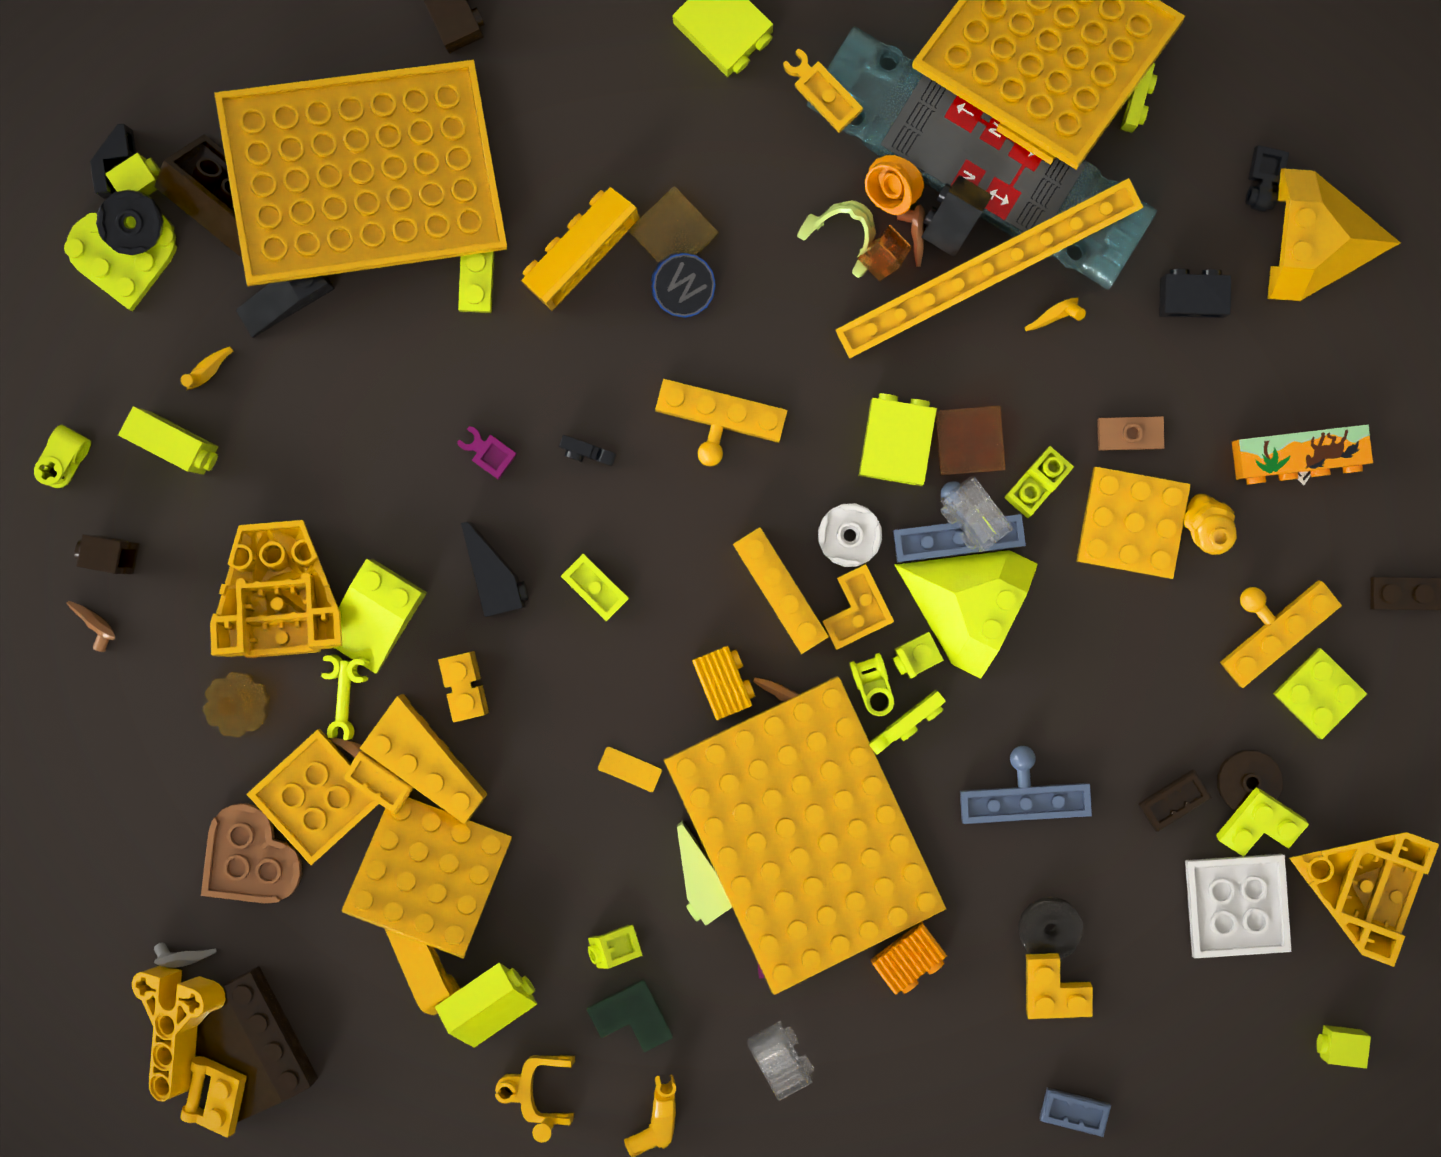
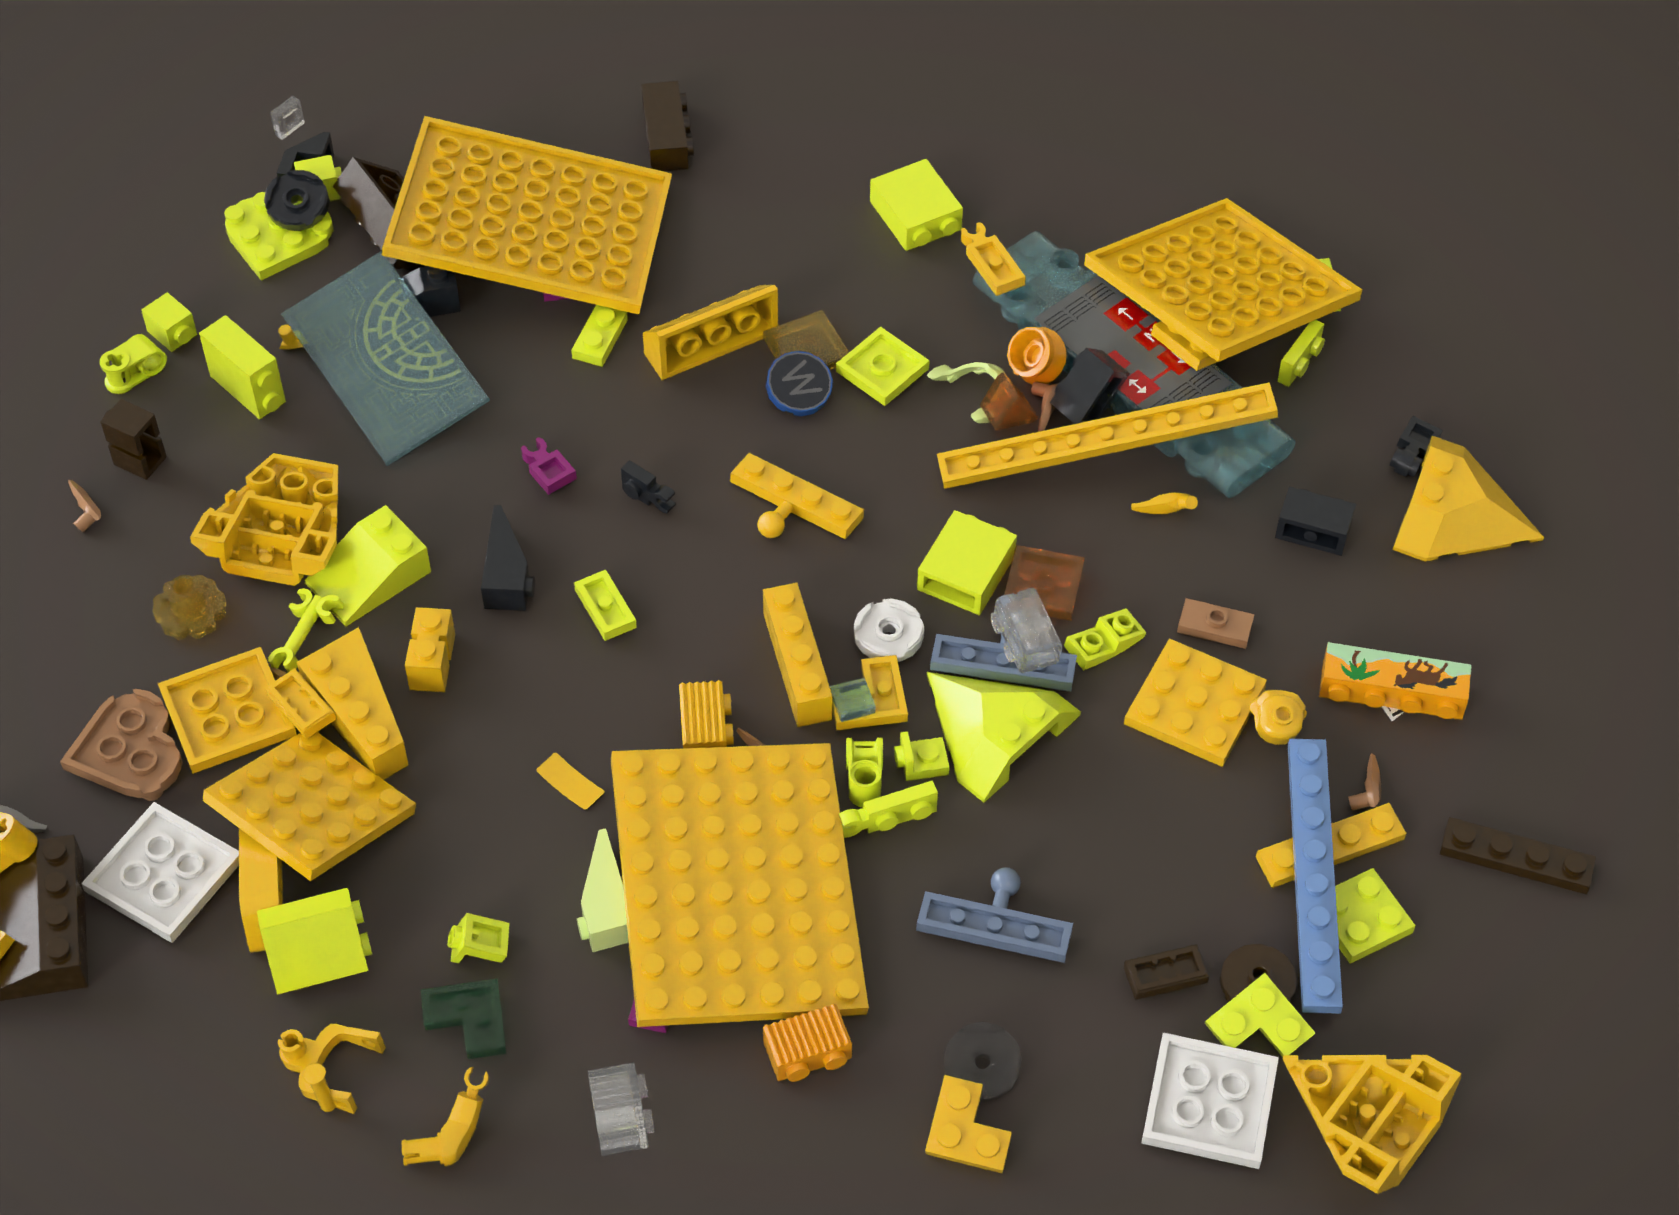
camera: 20 degrees right, 35 degrees down
(70, 106) = (287, 117): none -> clear tile
(74, 399) = (169, 322): none -> neon yellow brick
(291, 379) = (385, 358): none -> clear light blue piece
(332, 966) = (162, 872): none -> white plate
(752, 236) = (882, 366): none -> neon yellow plate
(844, 626) = (852, 699): none -> clear light blue tile
(1277, 678) = (1314, 877): none -> medium blue plate
(1303, 564) = (1372, 786): none -> medium nougat bar

